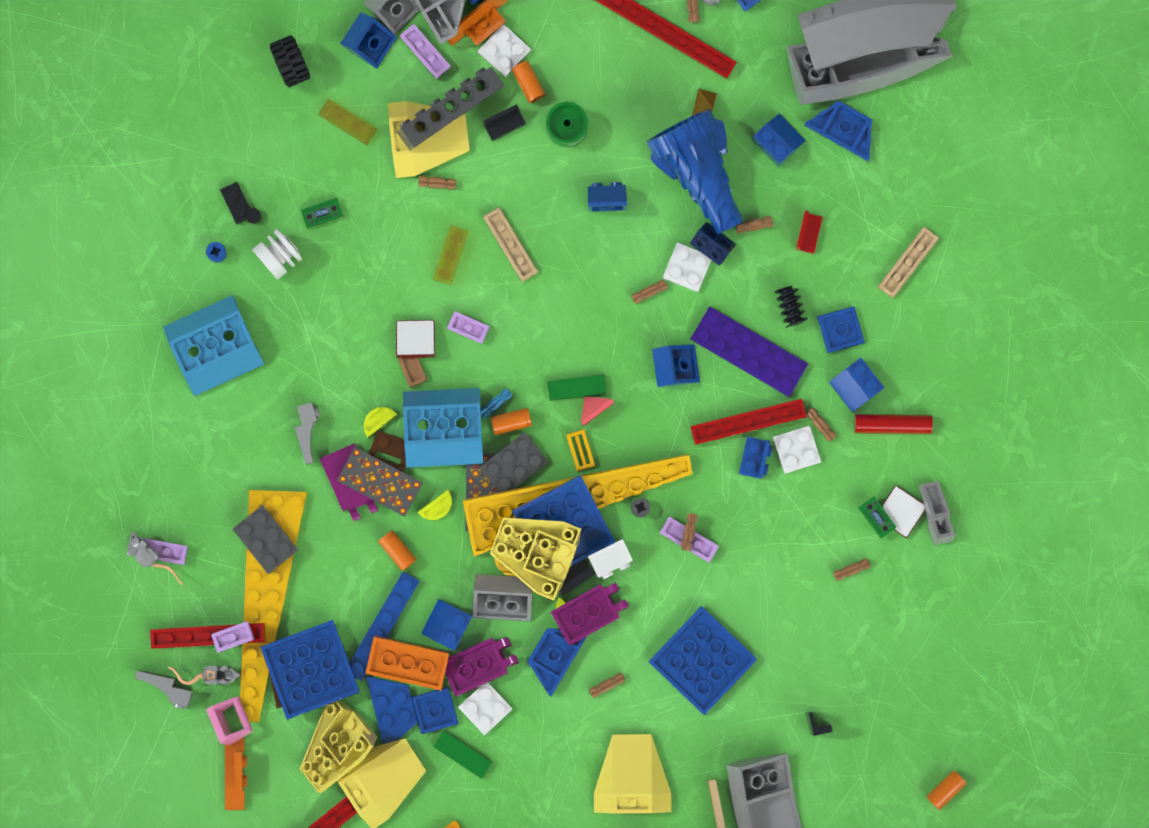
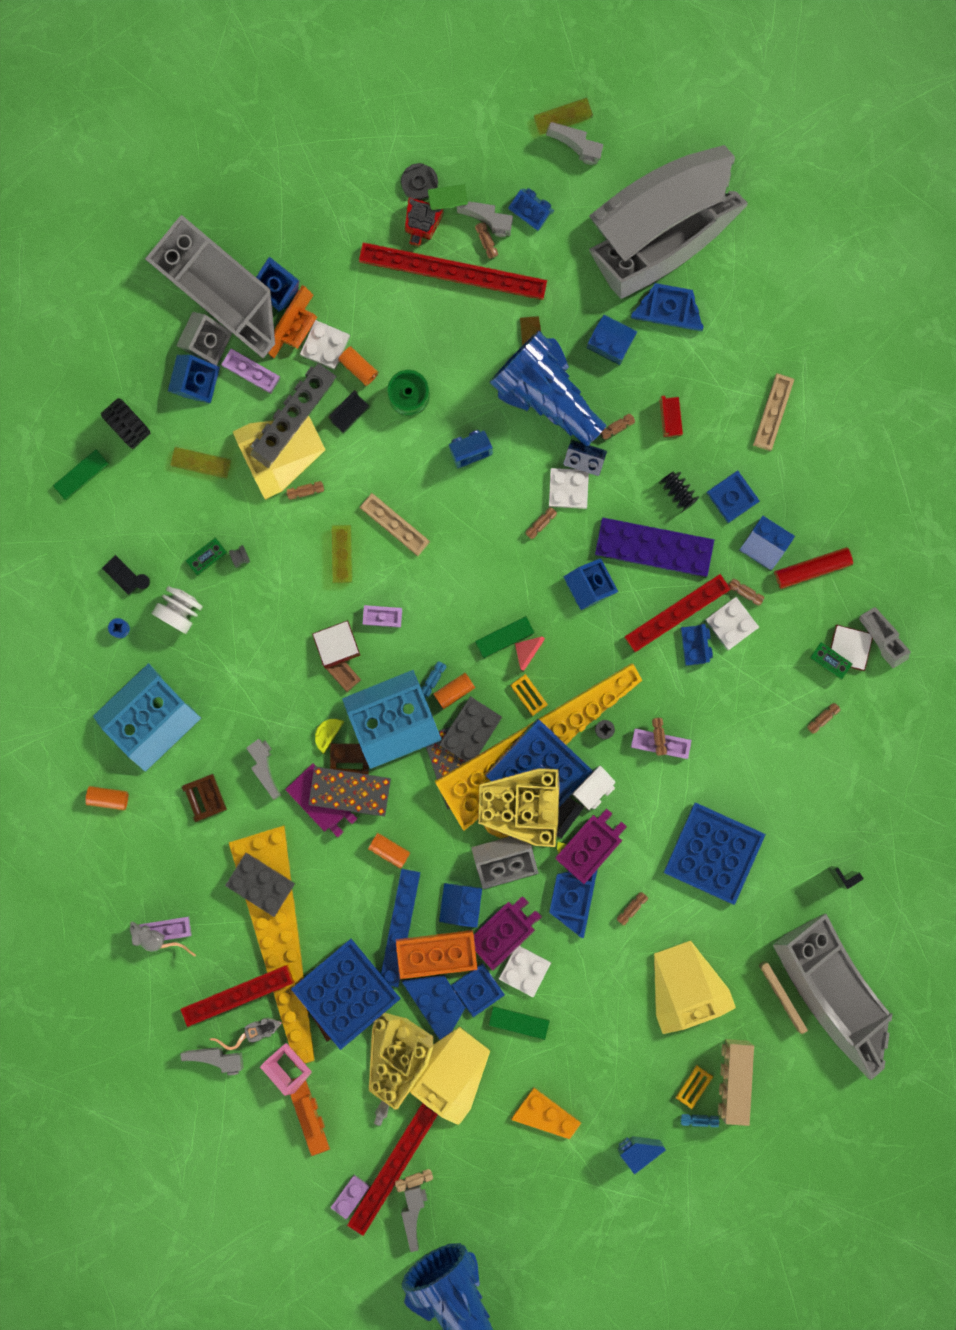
camera: 20 degrees left, 0 degrees up
(150, 408) = (107, 798): none -> orange pin
(230, 94) = (81, 474): none -> green tile
(233, 636) = (261, 989): lavender plate -> none
(247, 440) = (209, 794): none -> reddish brown plate
(304, 793) = (381, 1113): none -> light grey bar
(353, 224) = (239, 556): none -> dark grey wheel
(437, 508) = (413, 797): neon yellow tile -> none

